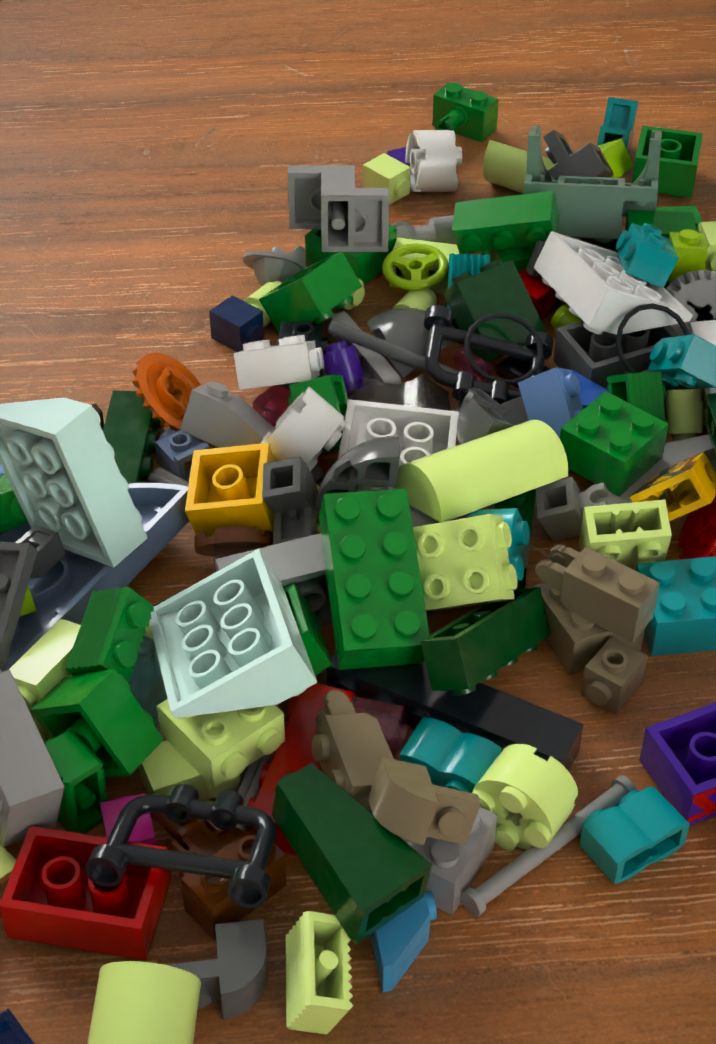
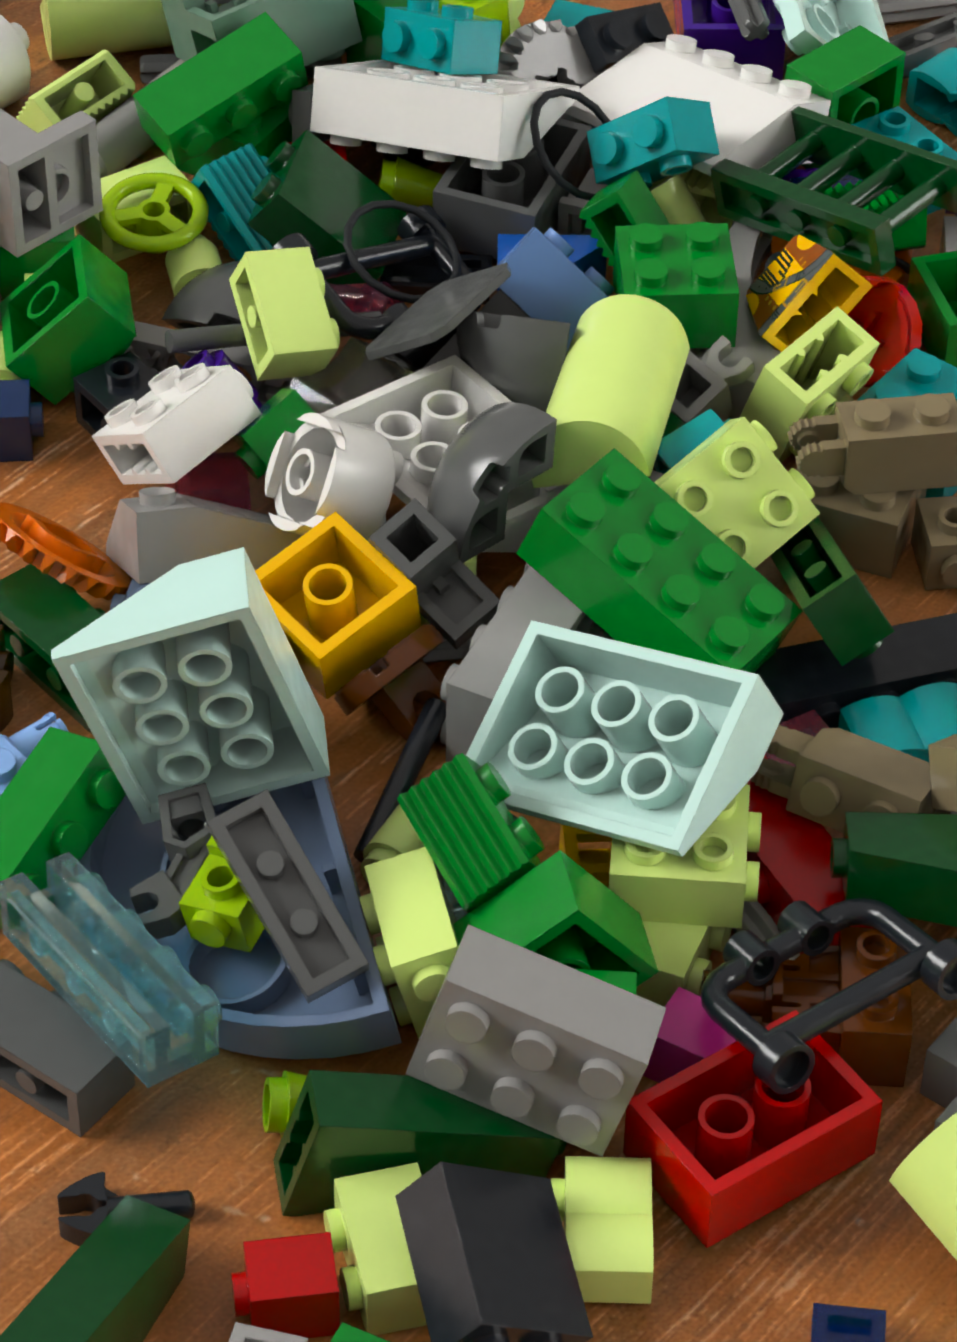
camera: 45 degrees left, 0 degrees up
(393, 342) = (284, 313): none -> yellowish green brick
(440, 198) = (92, 87): none -> yellowish green brick
(466, 383) = (438, 311): none -> dark grey piece

